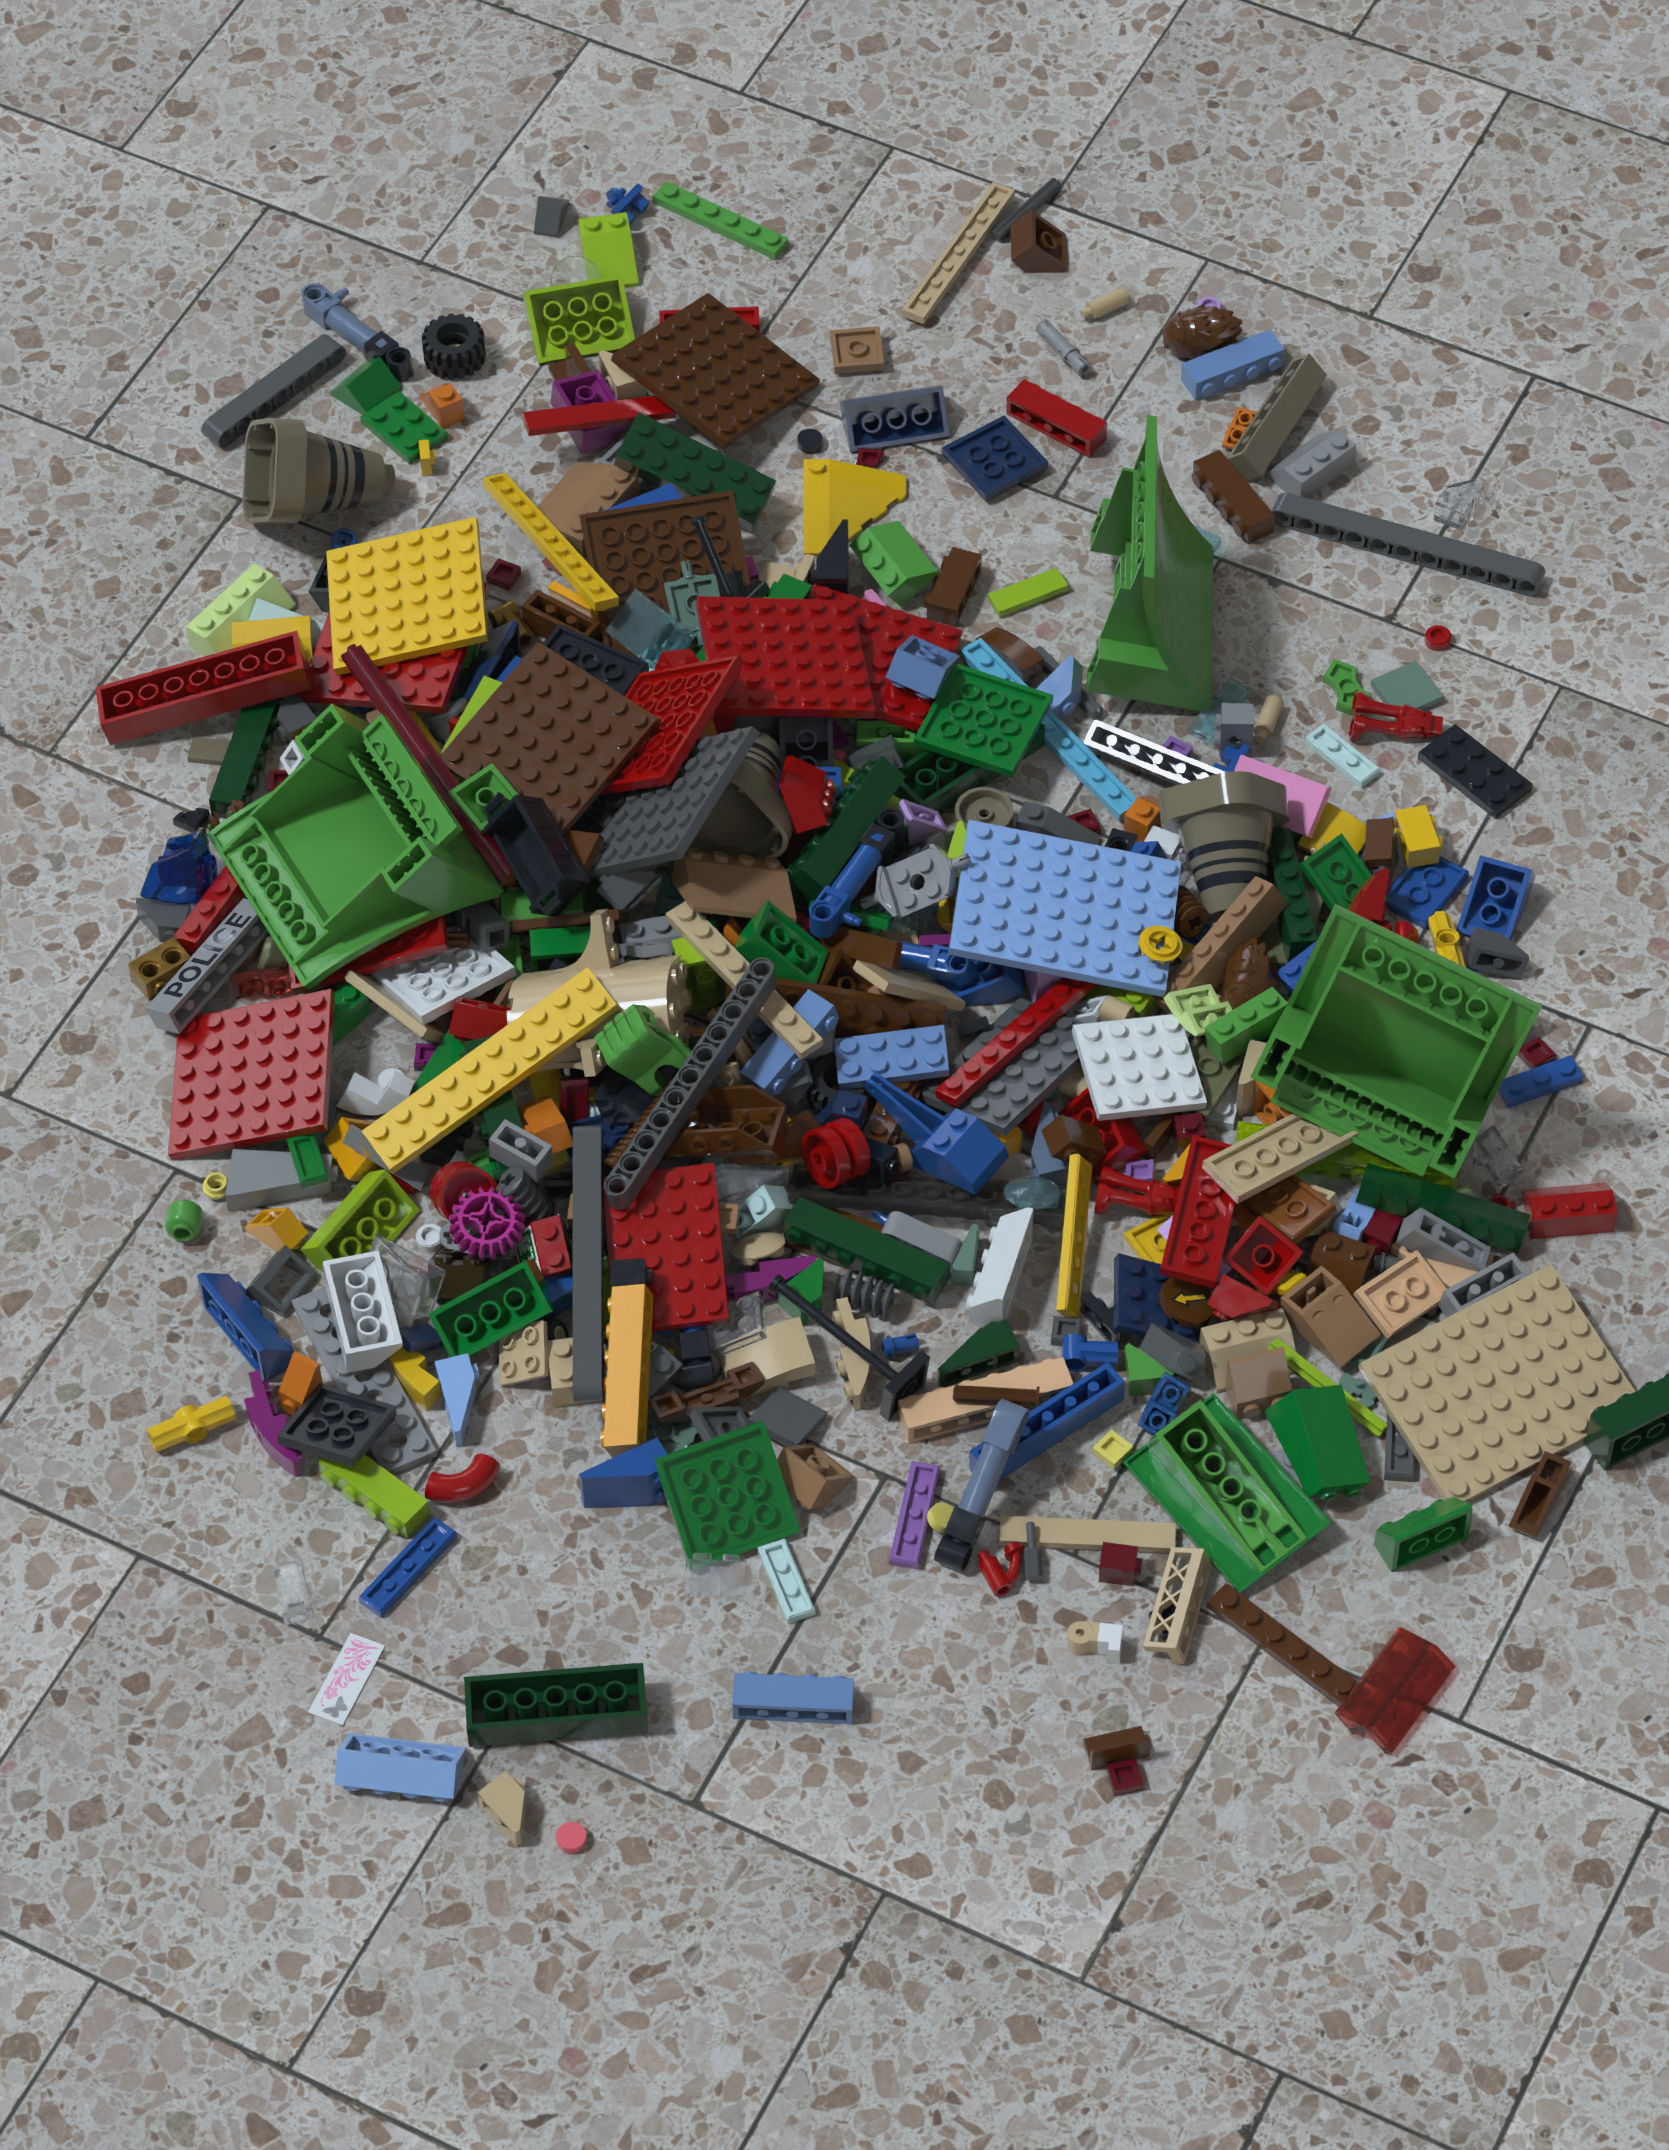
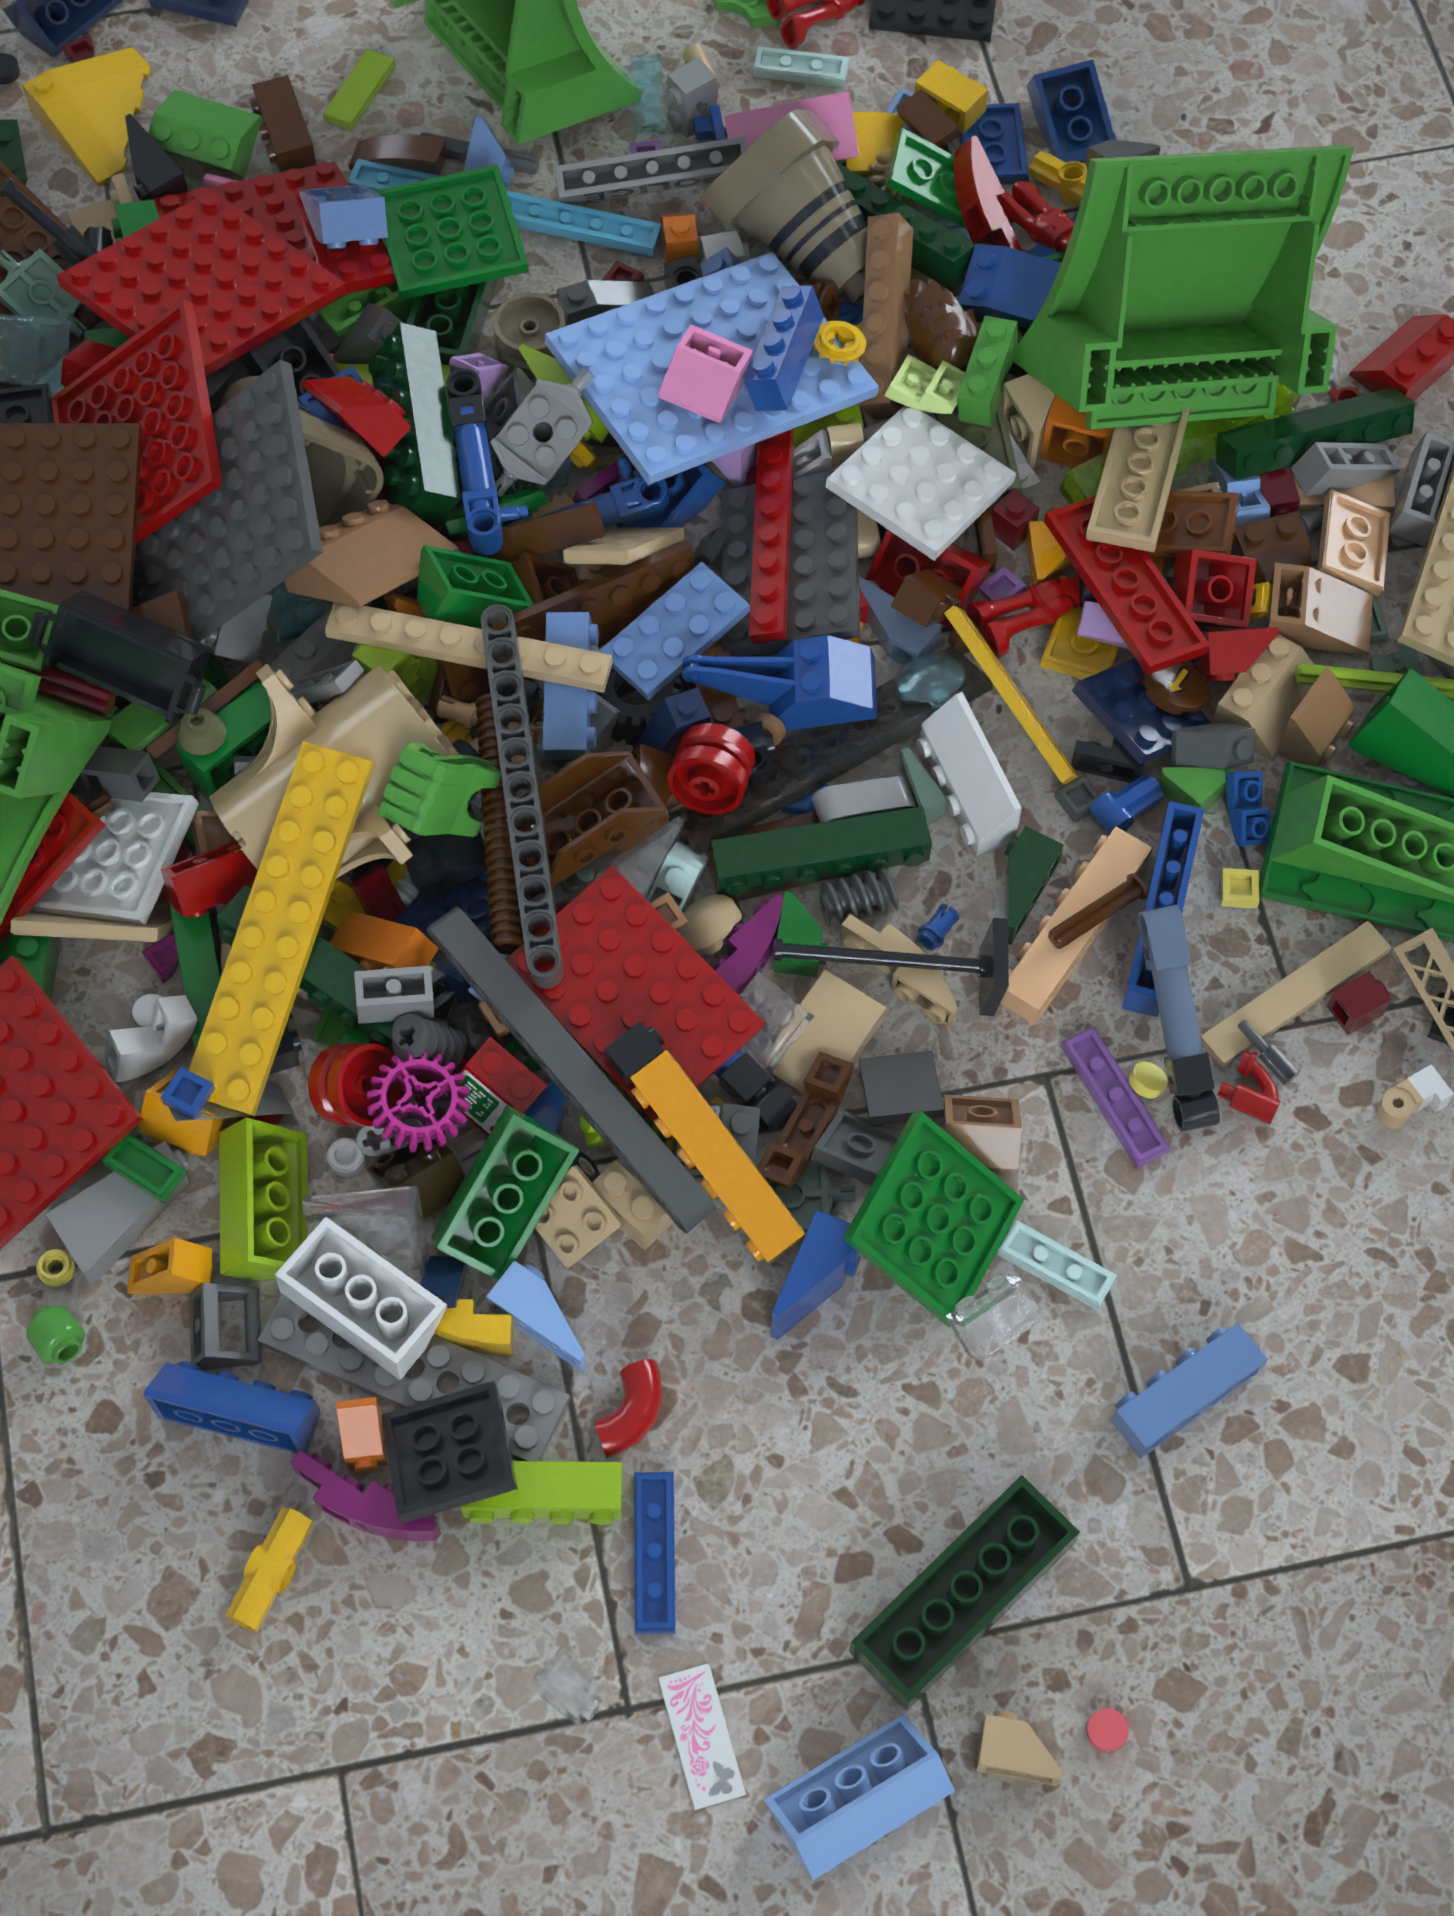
camera: 40 degrees left, 10 degrees up
(361, 1130) = (187, 1093): none -> blue plate
(548, 930) = (201, 732): none -> olive cone
(1040, 906) = (705, 374): none -> bright pink slope
(1111, 922) = (784, 348): none -> blue brick

